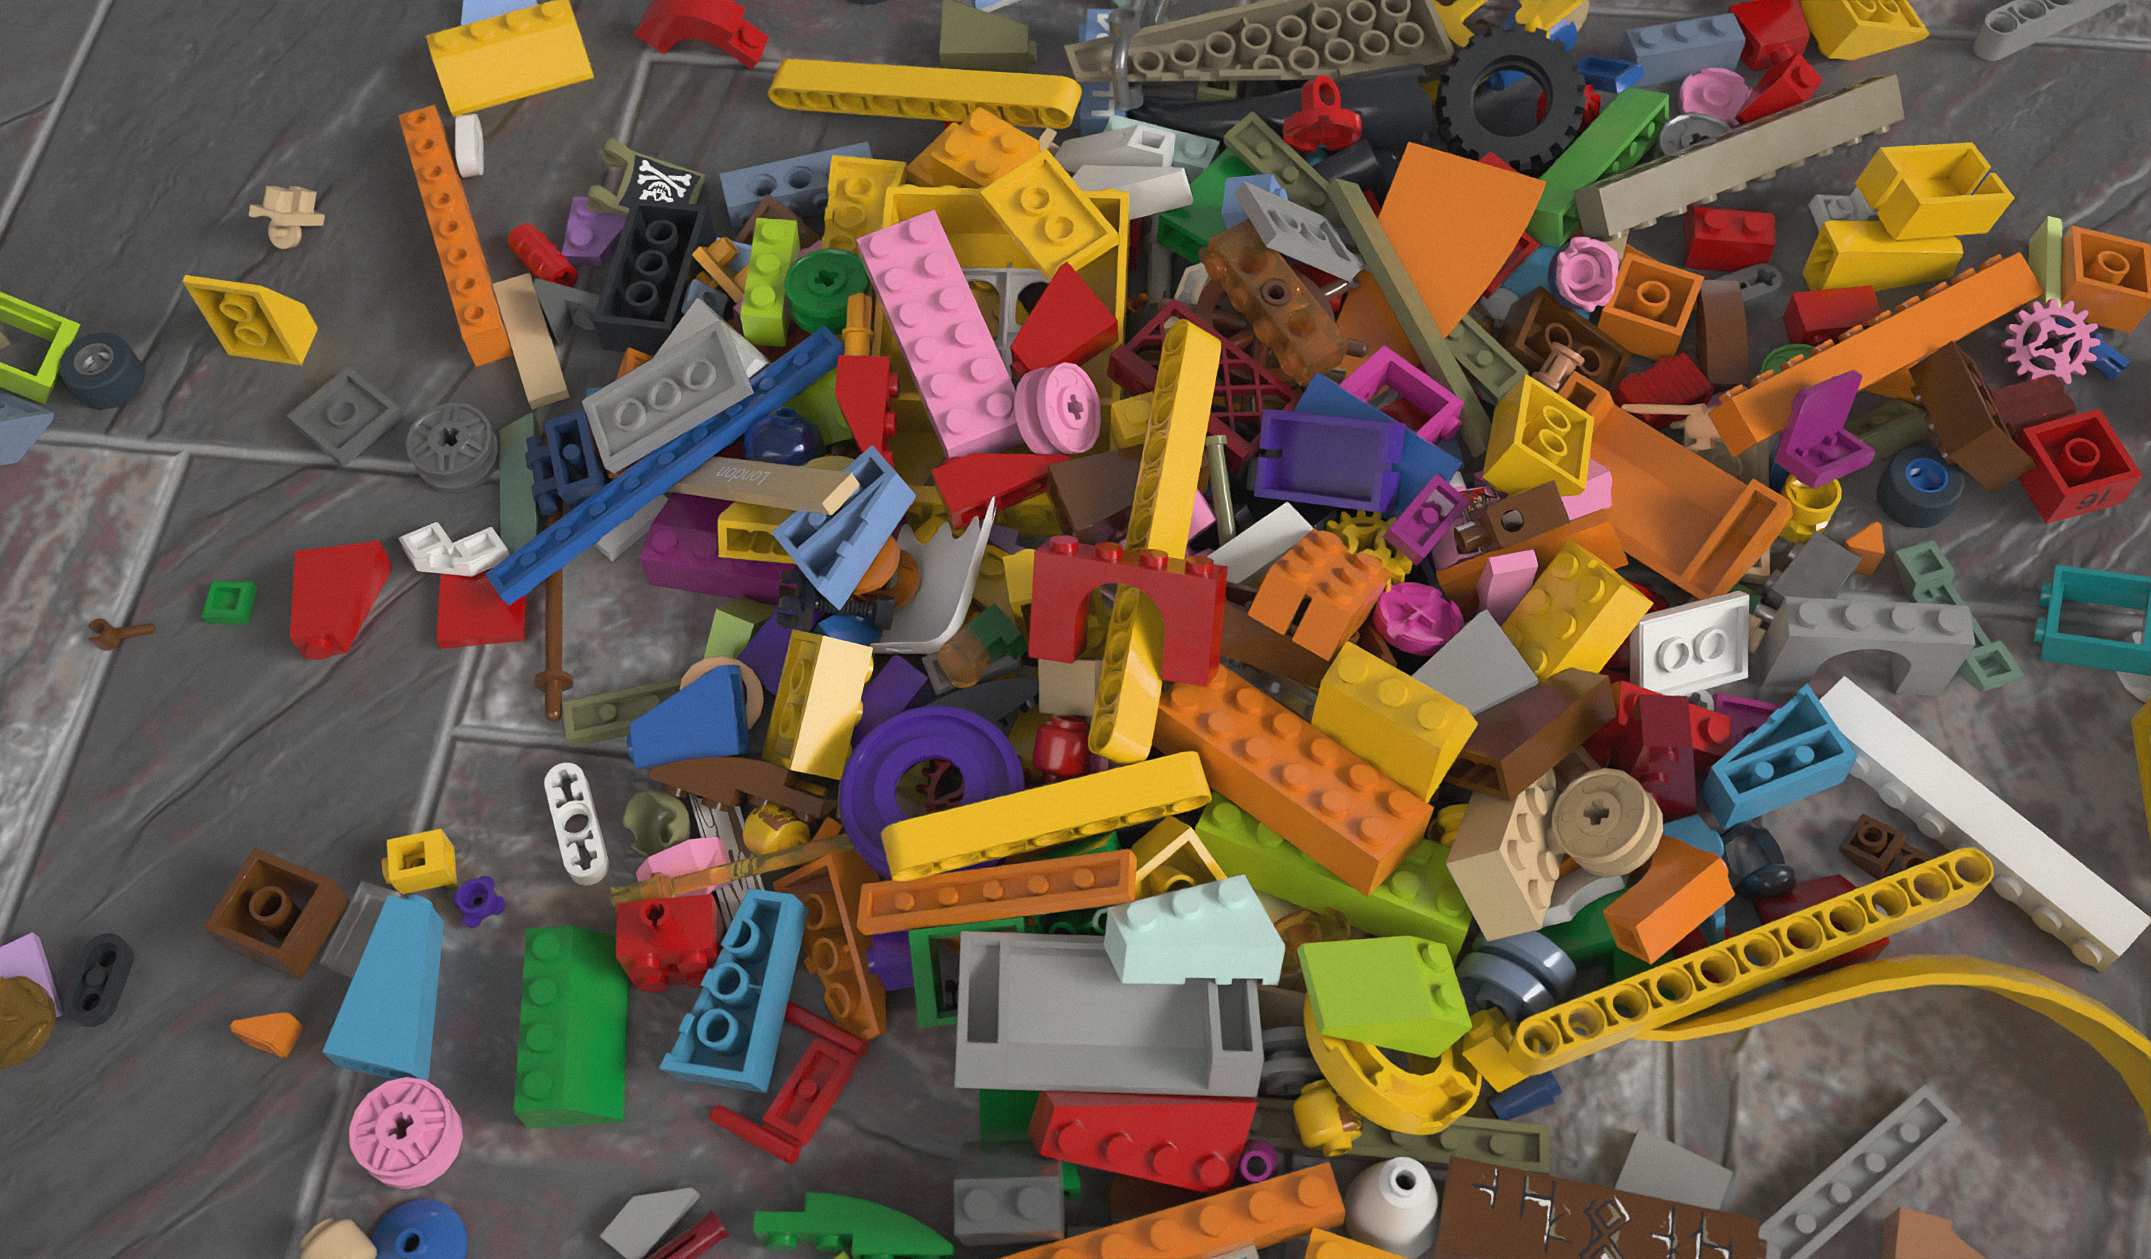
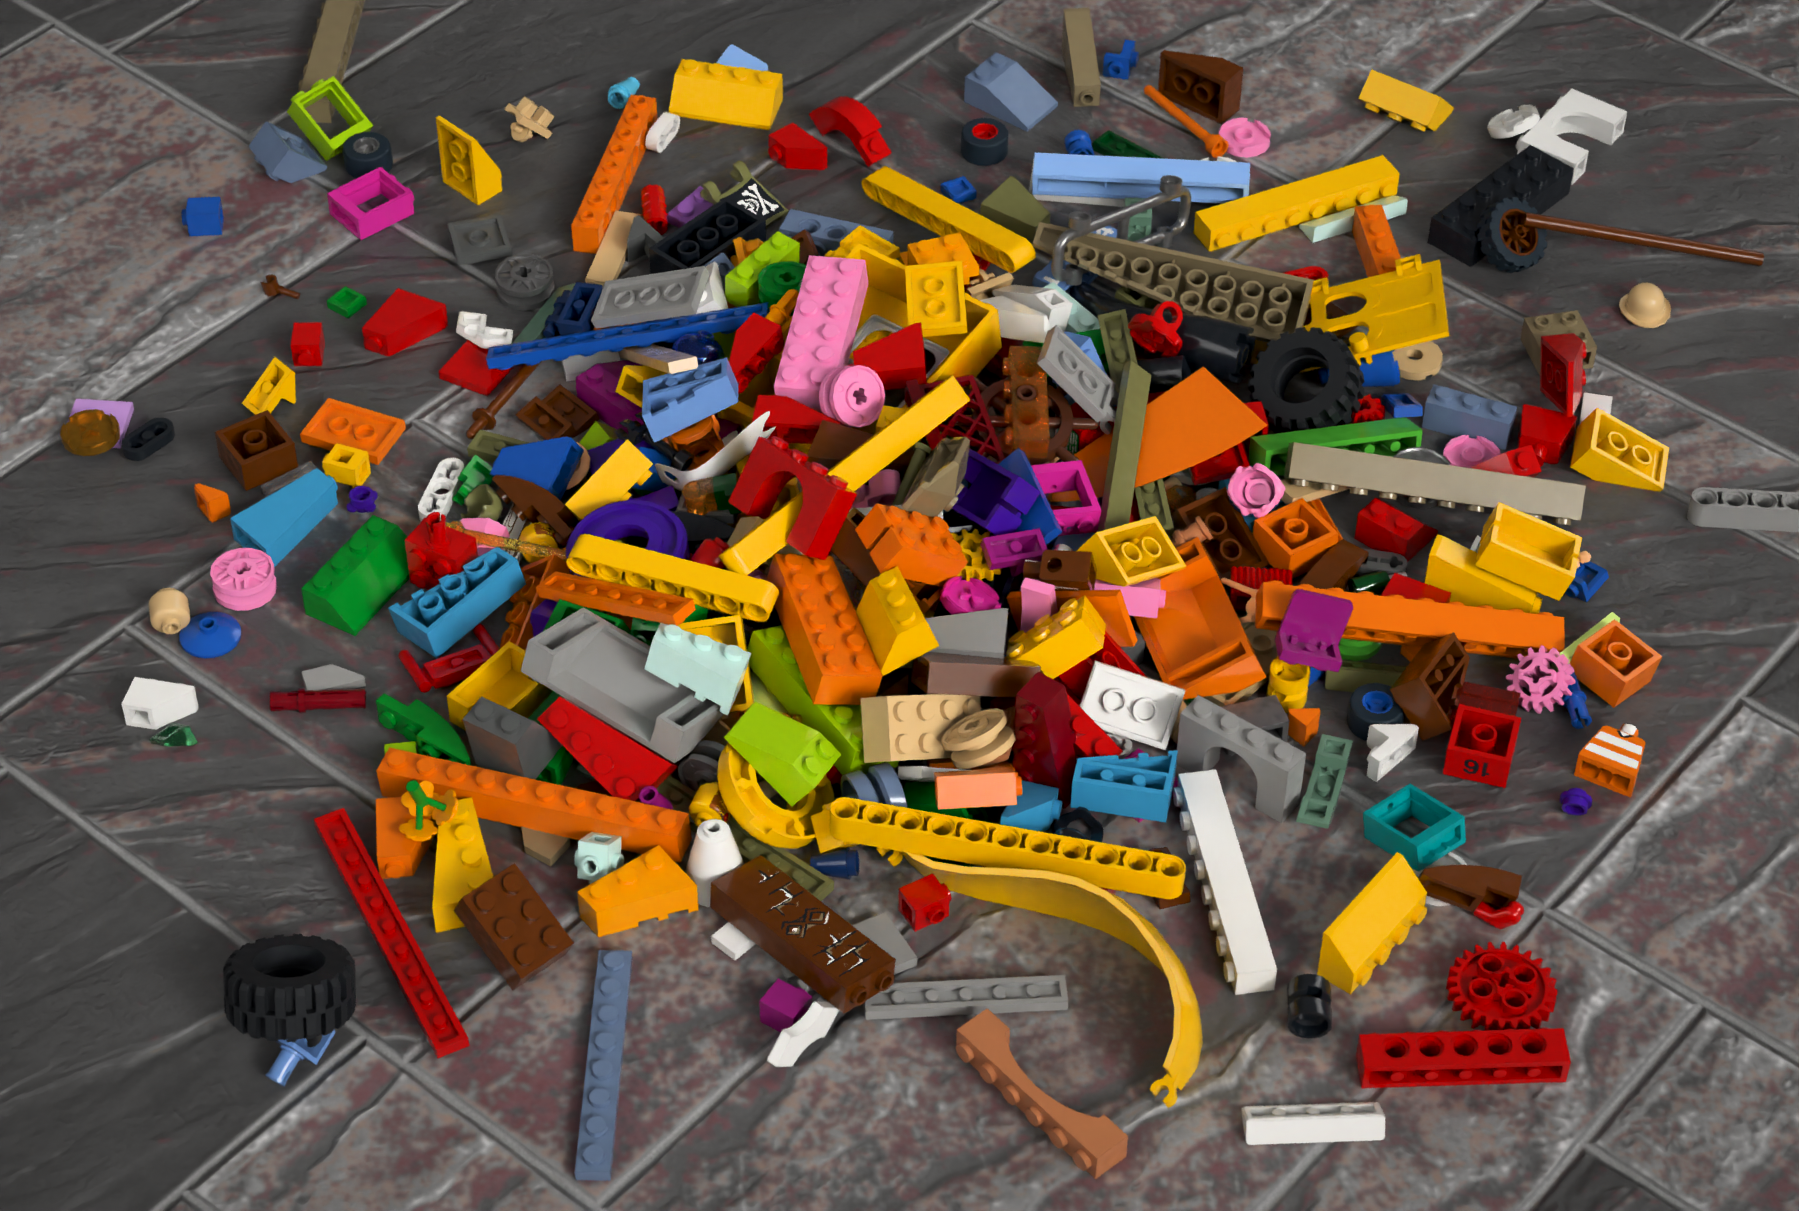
camera: 30 degrees right, 15 degrees down
(116, 450) = (346, 198): none -> dark pink window
(225, 700) = (307, 344): none -> red brick
(226, 804) = (274, 384): none -> yellow slope
(376, 116) = (619, 93): none -> medium azure cone
(386, 799) = (353, 427): none -> orange plate
(613, 778) = (473, 475): none -> green plate
(643, 621) = (557, 415): none -> reddish brown slope
(655, 87) = (797, 149): none -> red slope
(884, 47) = (958, 190): none -> blue tile
(910, 1110) = (499, 682): none -> yellow piece
(1280, 469) = (939, 478): none -> dark tan wedge
(1678, 1083) = (924, 902): none -> red brick
(1768, 316) = (1371, 582): none -> dark green piece
(1978, 524) = (1389, 746): none -> white slope

